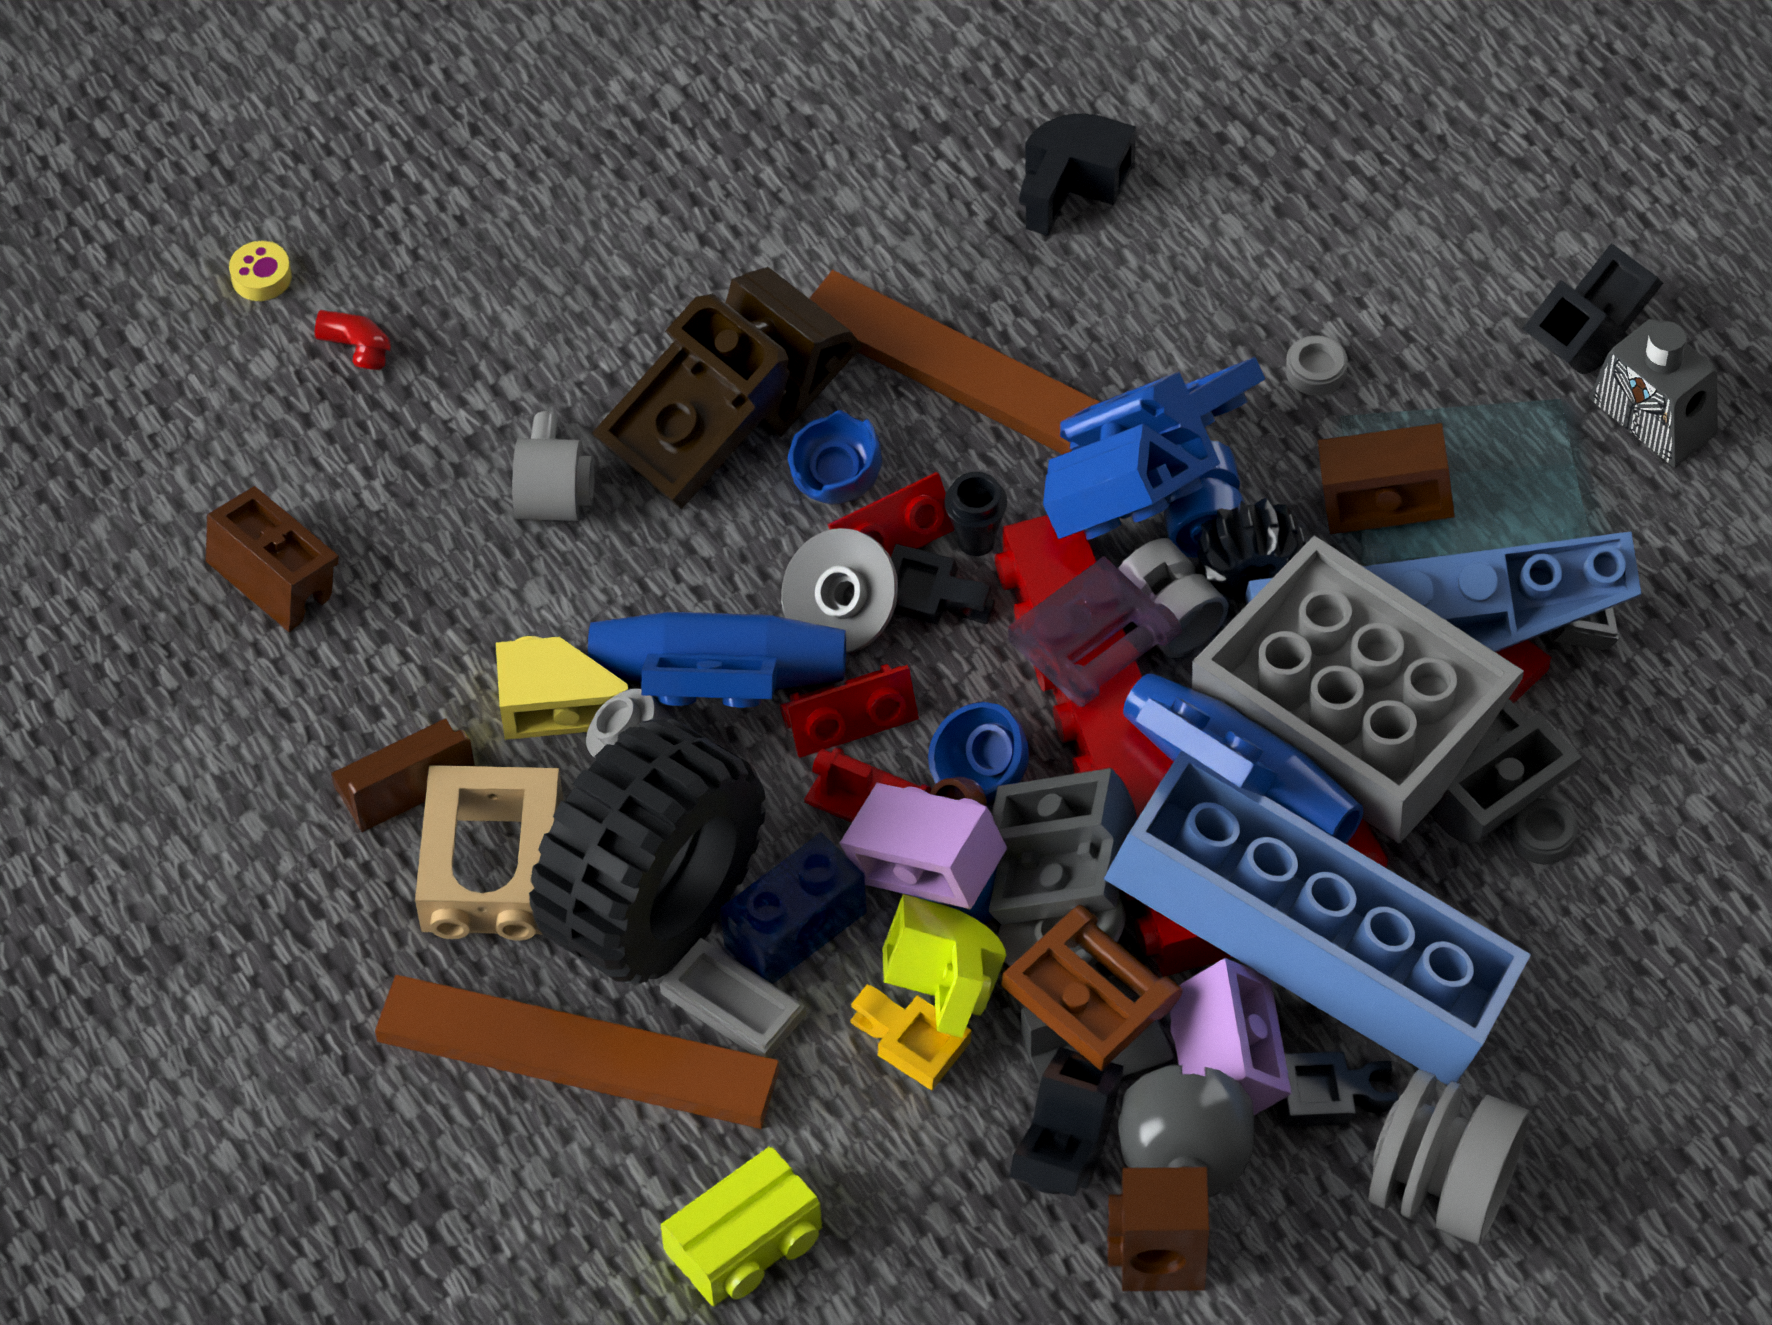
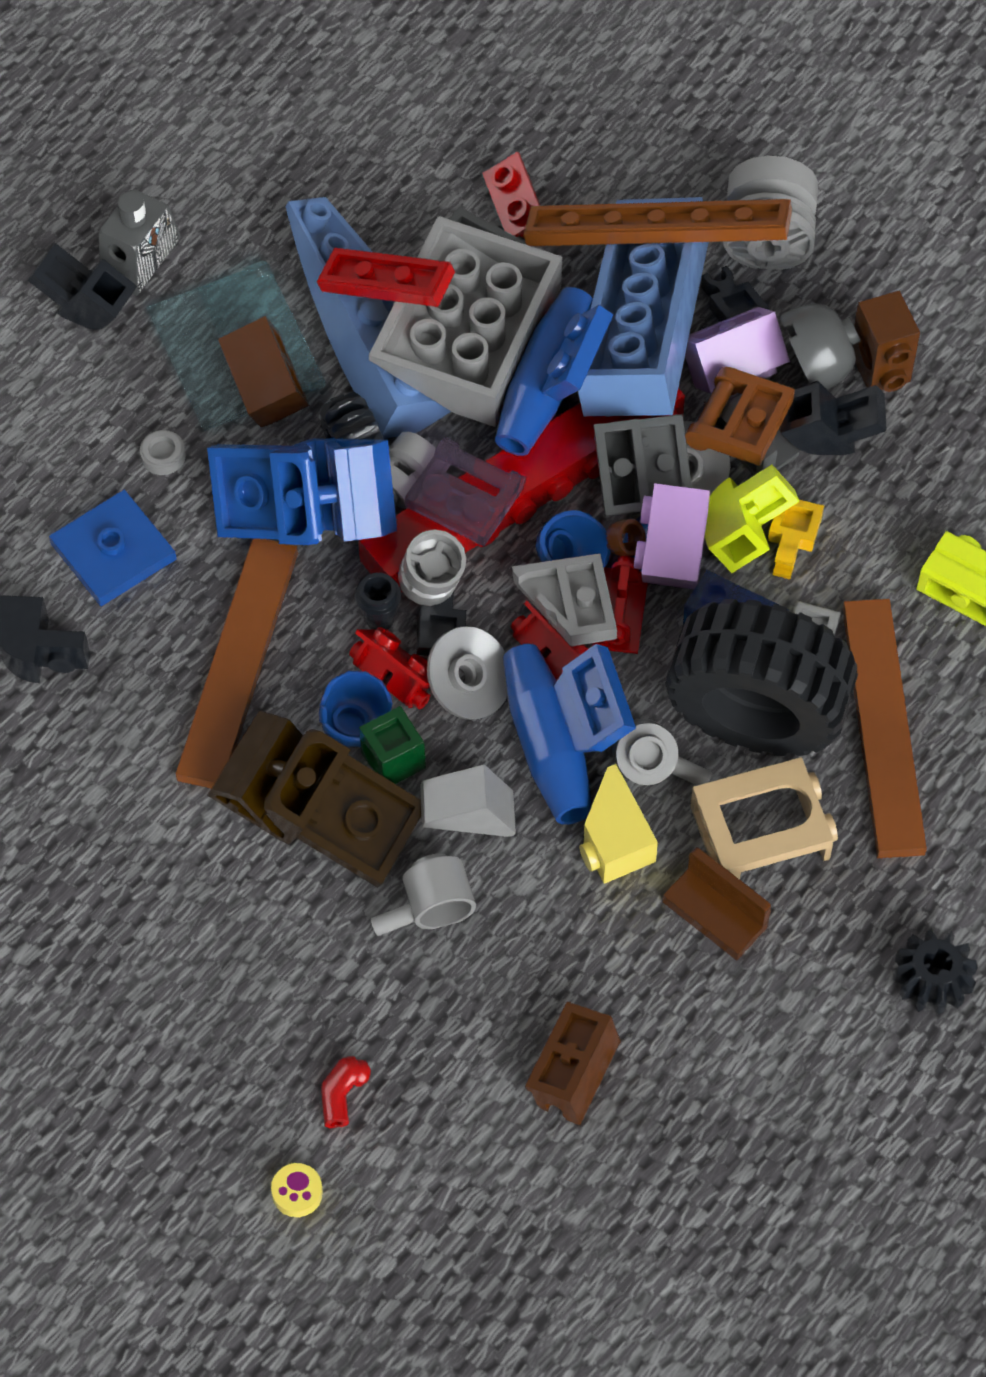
camera: 110 degrees left, 5 degrees up
(184, 993) = (950, 983): none -> black gear
(650, 544) = (468, 802): none -> light grey slope
(760, 475) = (393, 746): none -> dark green brick
(885, 713) = (571, 597): none -> light grey wing
(977, 550) = (432, 567): none -> light grey wheel
(1188, 283) = (112, 547): none -> blue plate
(1435, 583) = (386, 277): none -> red tile
(1440, 964) = (658, 222): none -> dark orange tile
(1630, 859) = (511, 193): none -> hinge

